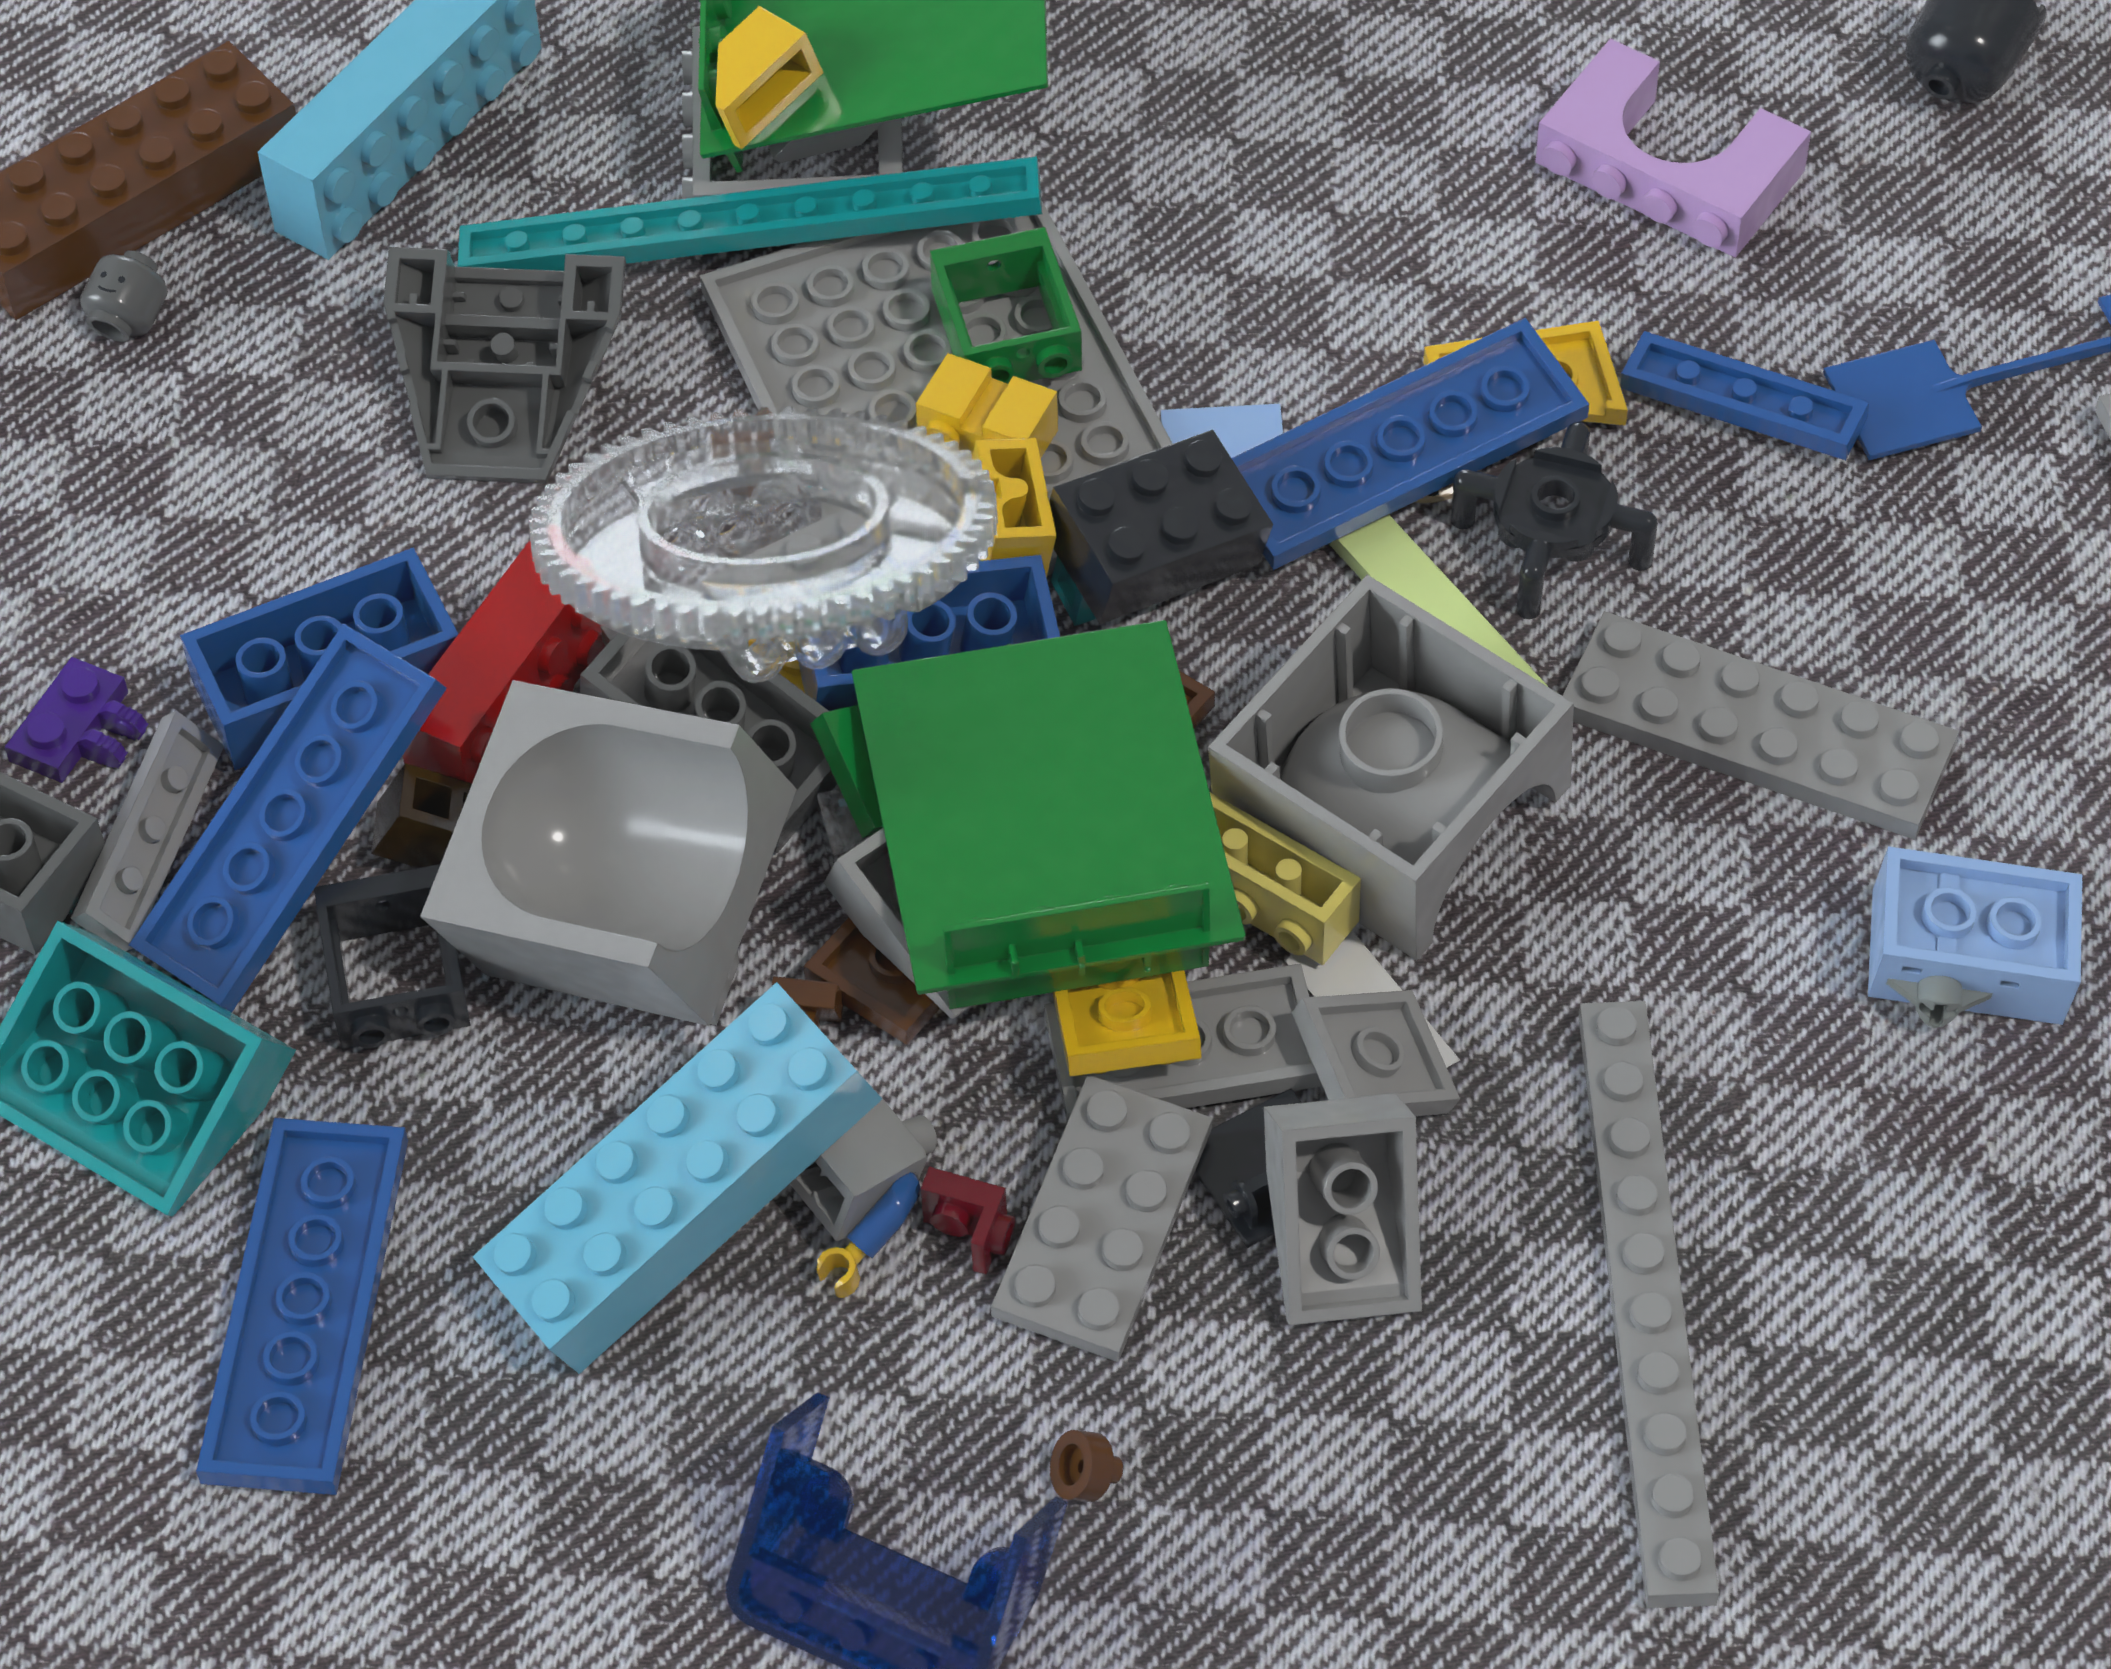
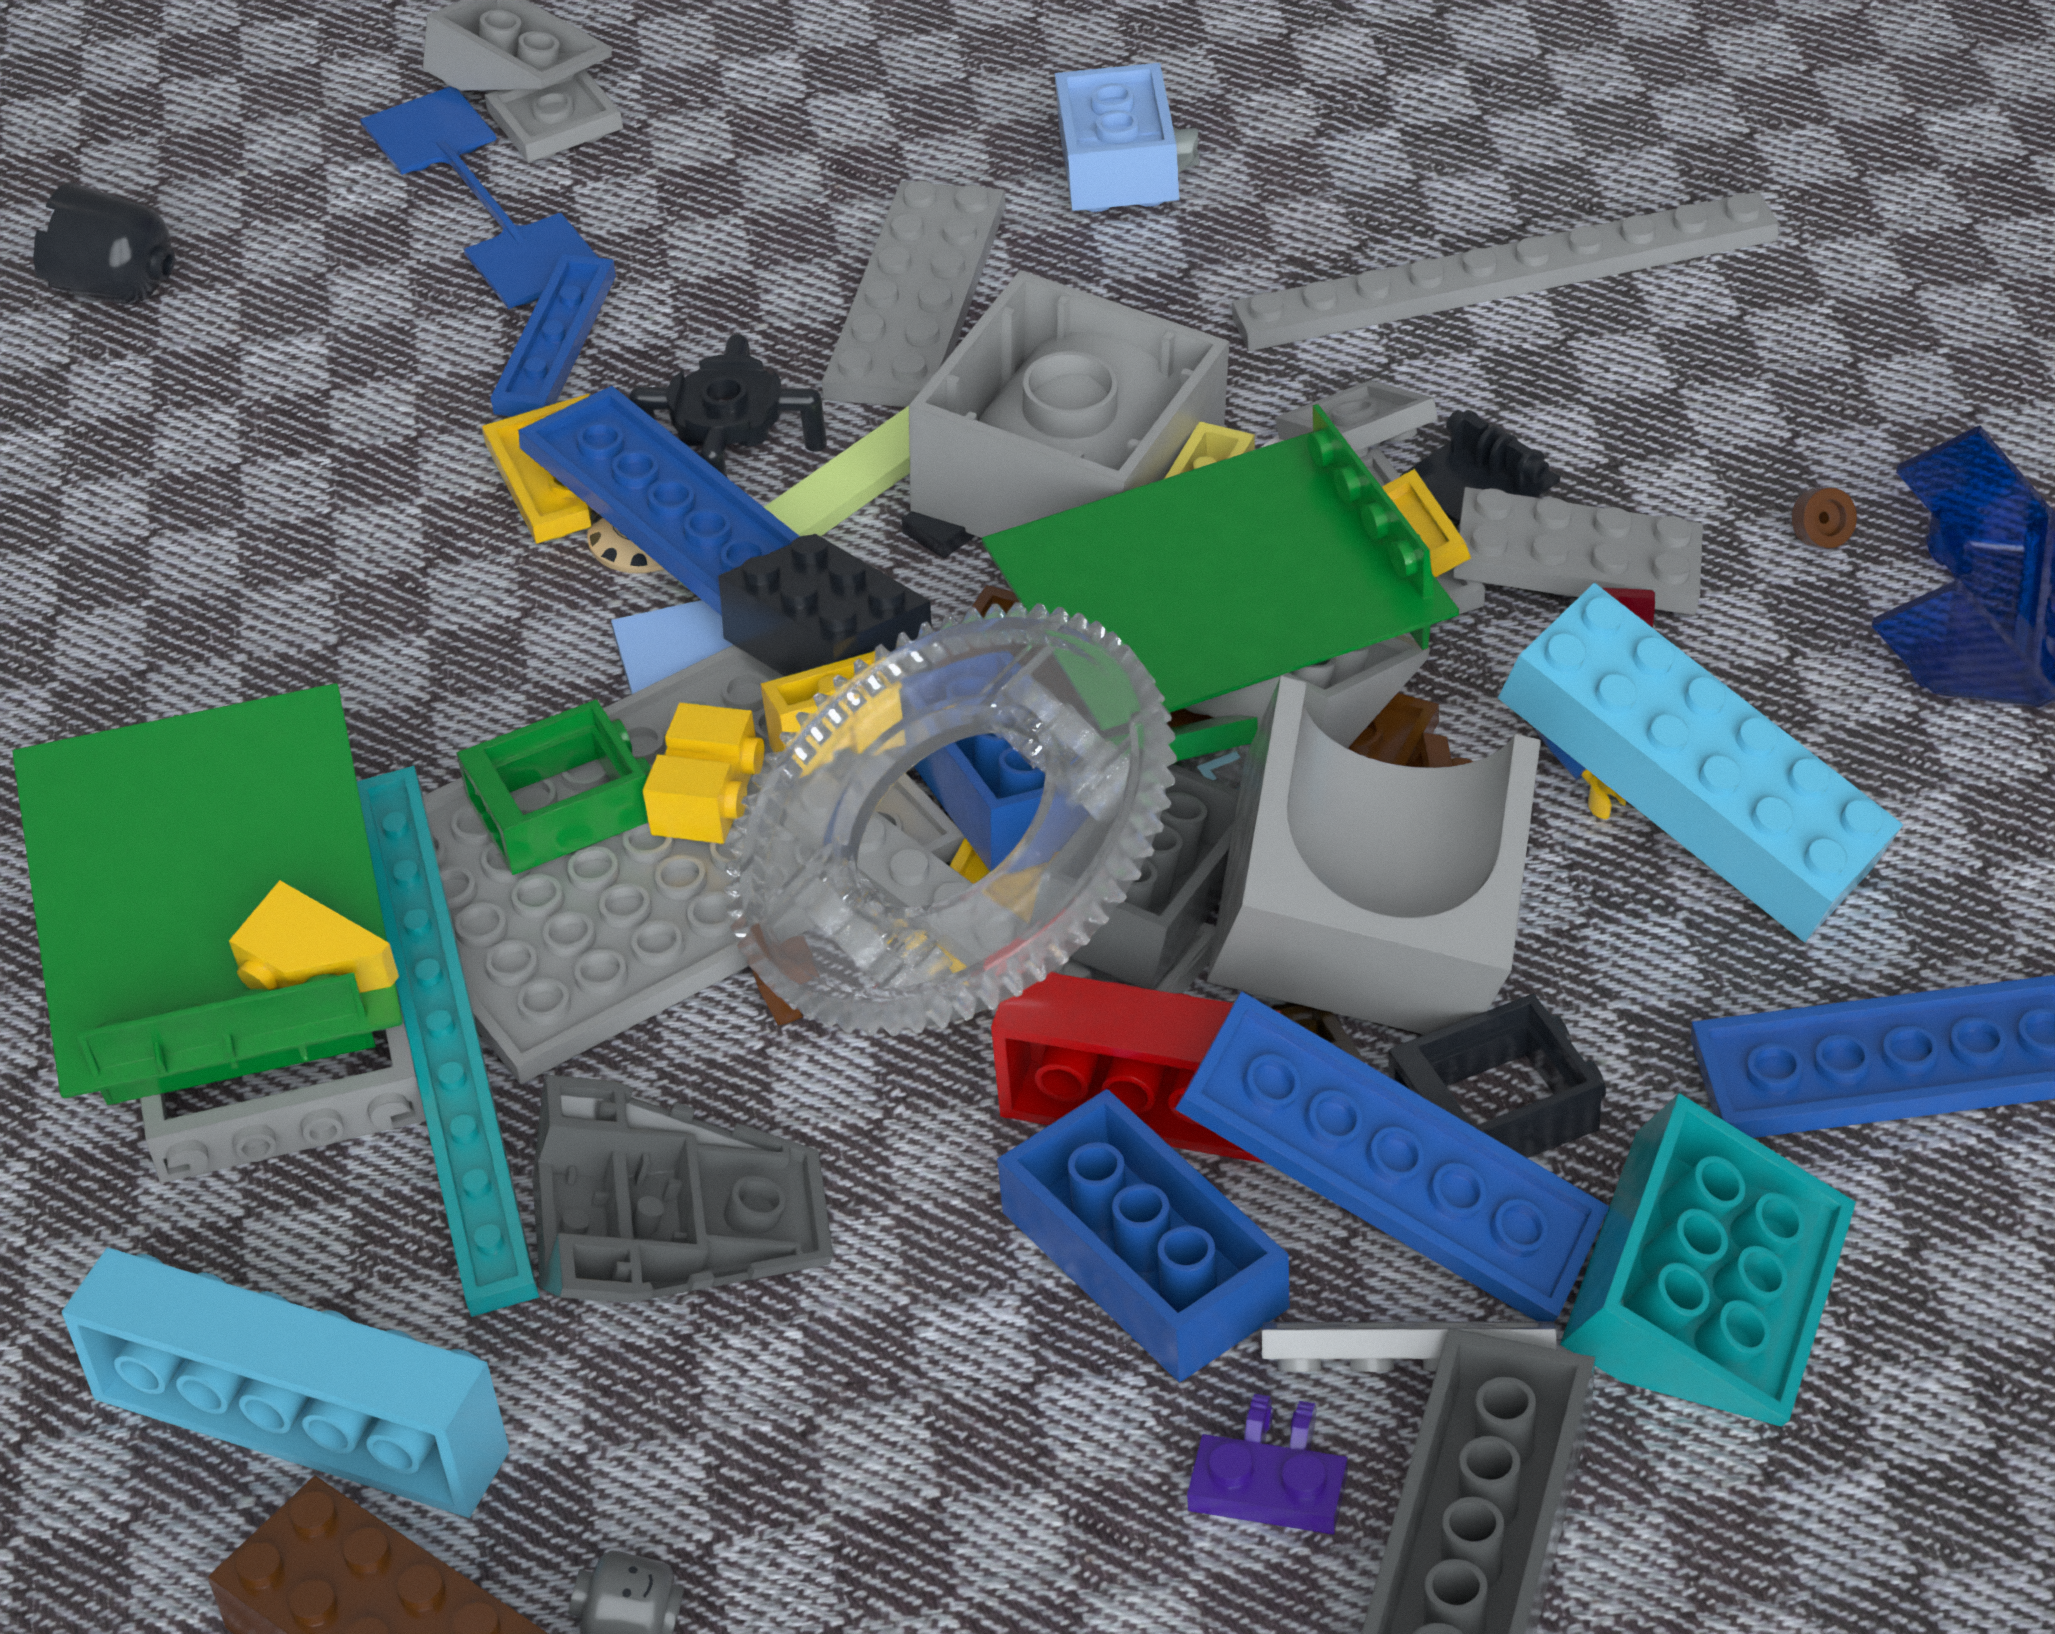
camera: 100 degrees left, 10 degrees down
(1345, 1207) = (1514, 387): light grey slope -> none
(1710, 199) = (248, 468): lavender arch -> none

